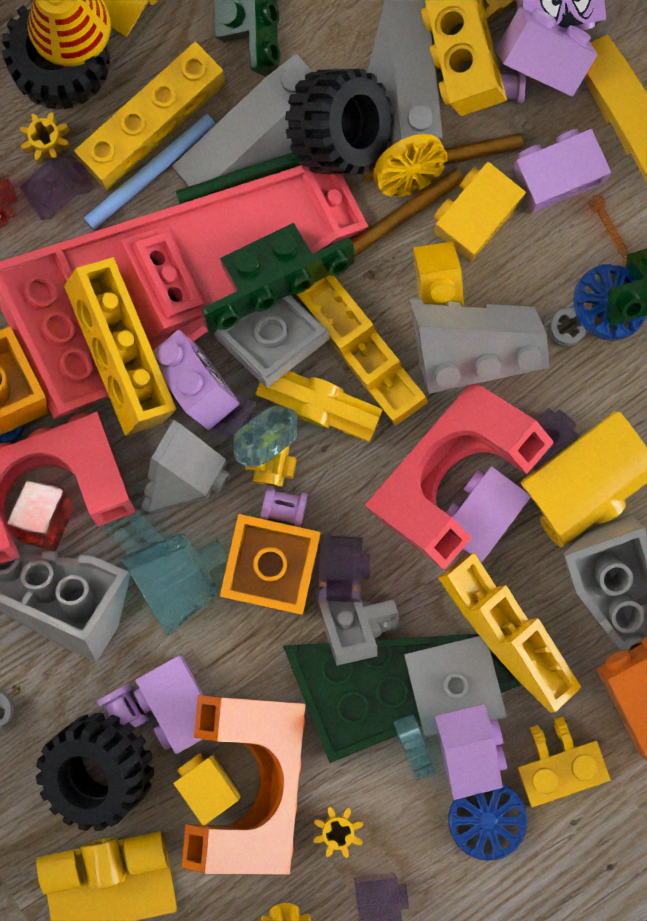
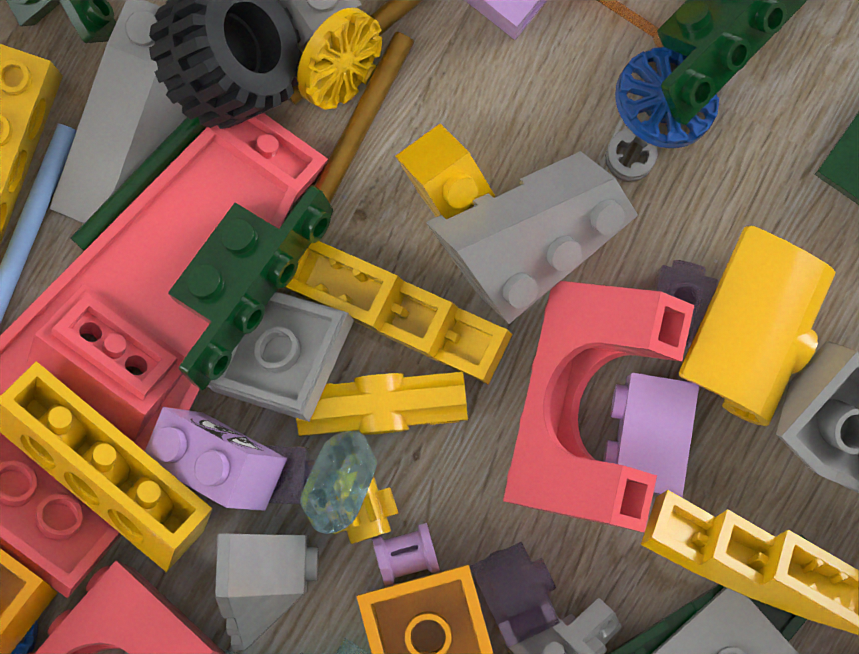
camera: 25 degrees left, 0 degrees up
(478, 211) = (450, 71): yellow brick -> none

